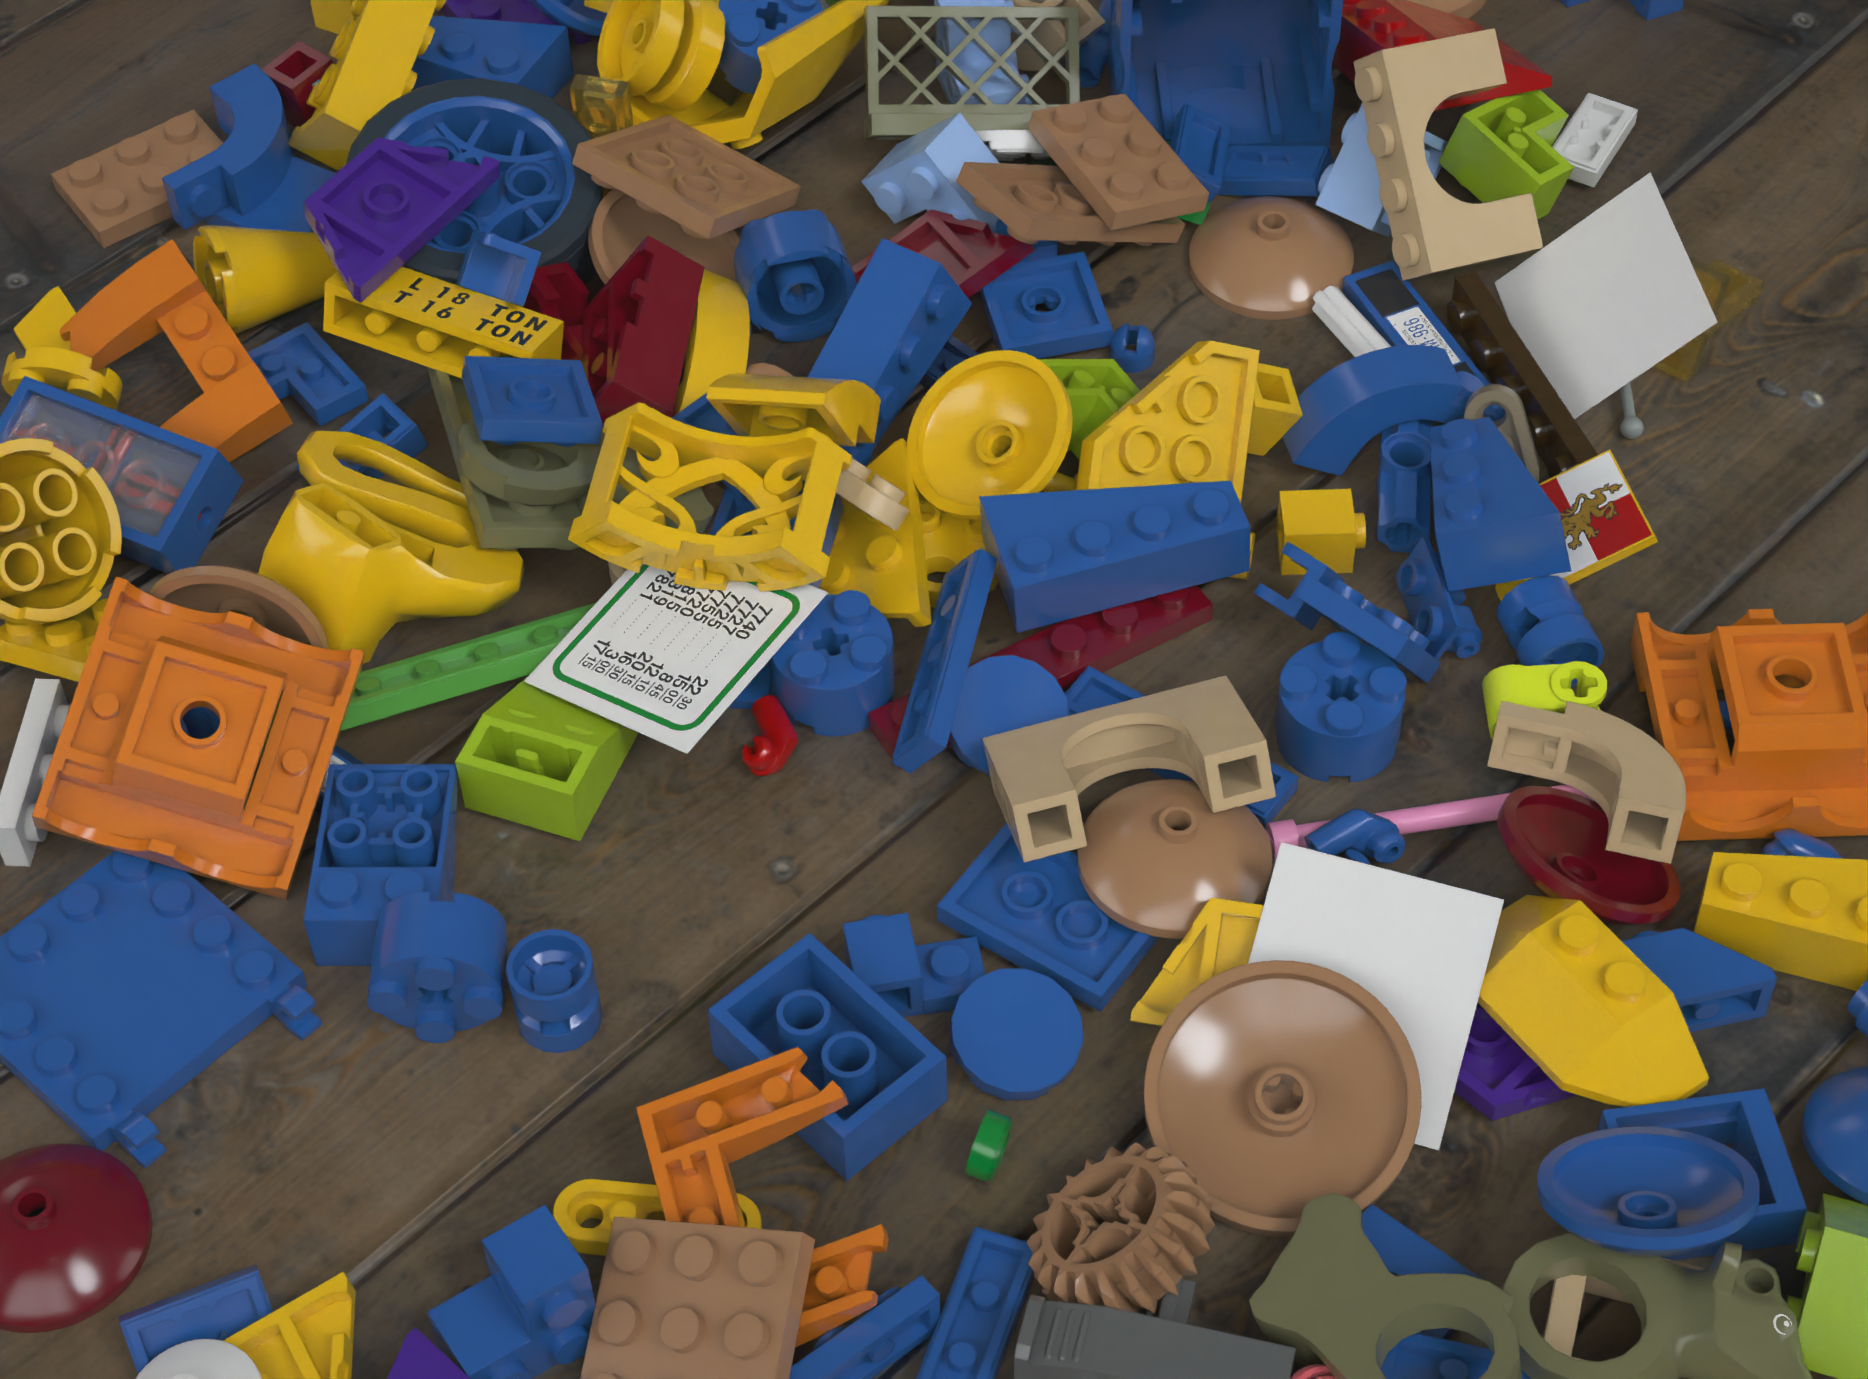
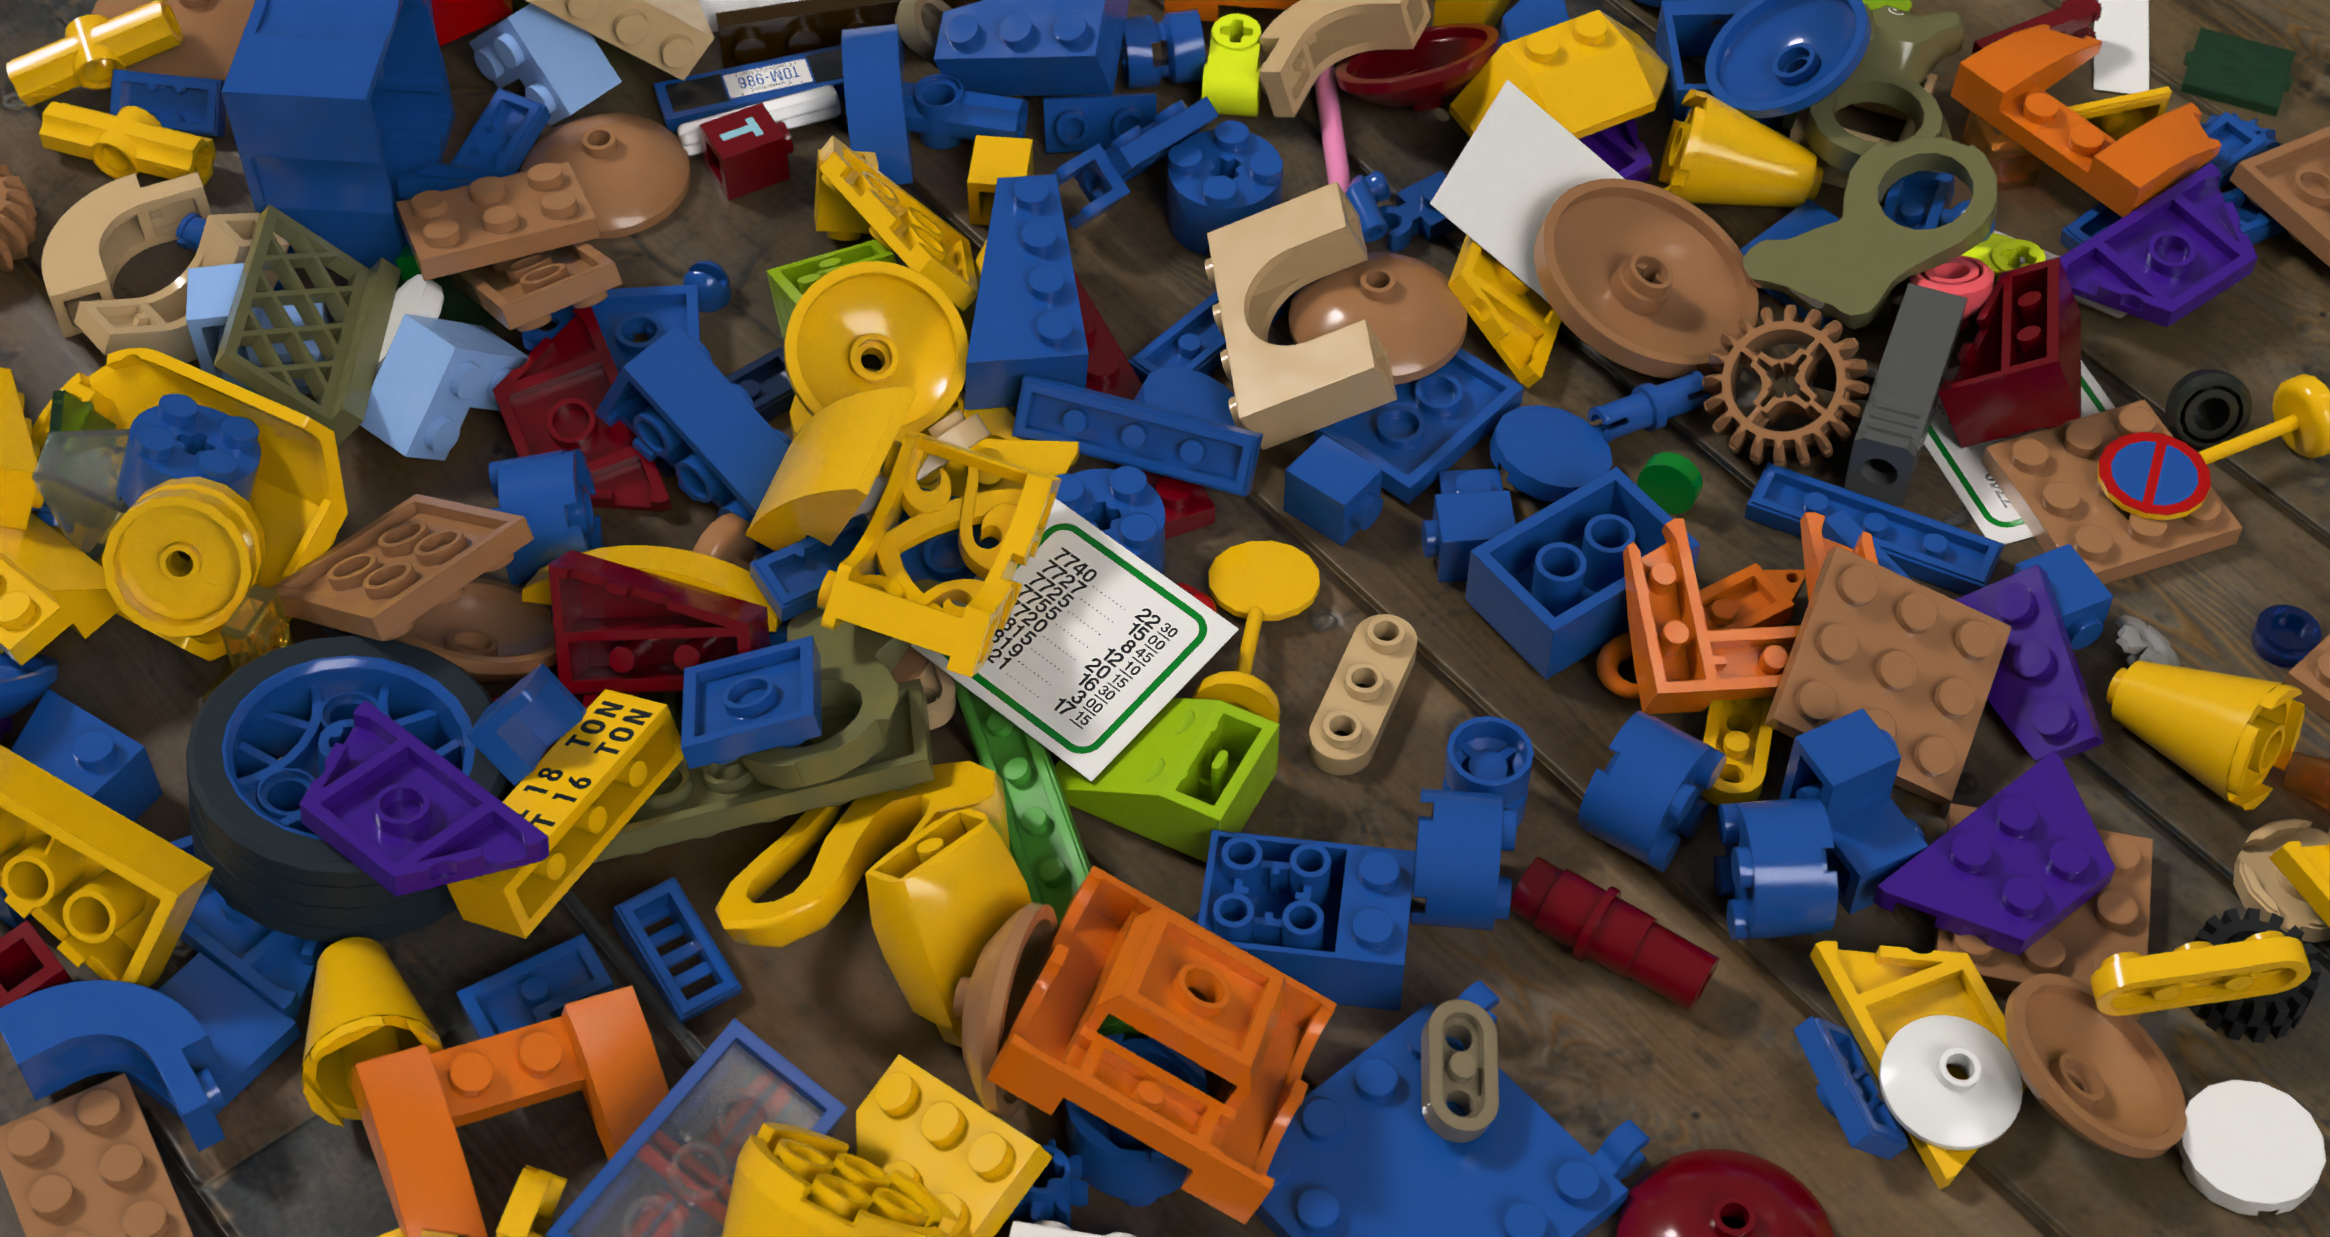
camera: 85 degrees left, 0 degrees up
(203, 979) = (1459, 1076): none -> dark tan plate
(377, 1112) = (1612, 933): none -> dark red piece
(429, 1230) = (1776, 868): none -> blue brick
(531, 1120) = (1650, 790): none -> blue brick
(701, 915) = (1358, 710): none -> tan plate
(799, 1194) = (1739, 601): none -> orange plate
(806, 808) = (1260, 585): none -> yellow piece
(929, 844) = (1333, 490): none -> blue brick
(1100, 1121) = (1649, 406): none -> blue pin
(1307, 335) = (746, 151): none -> dark red brick
(1494, 1167) = (1735, 159): none -> yellow cone

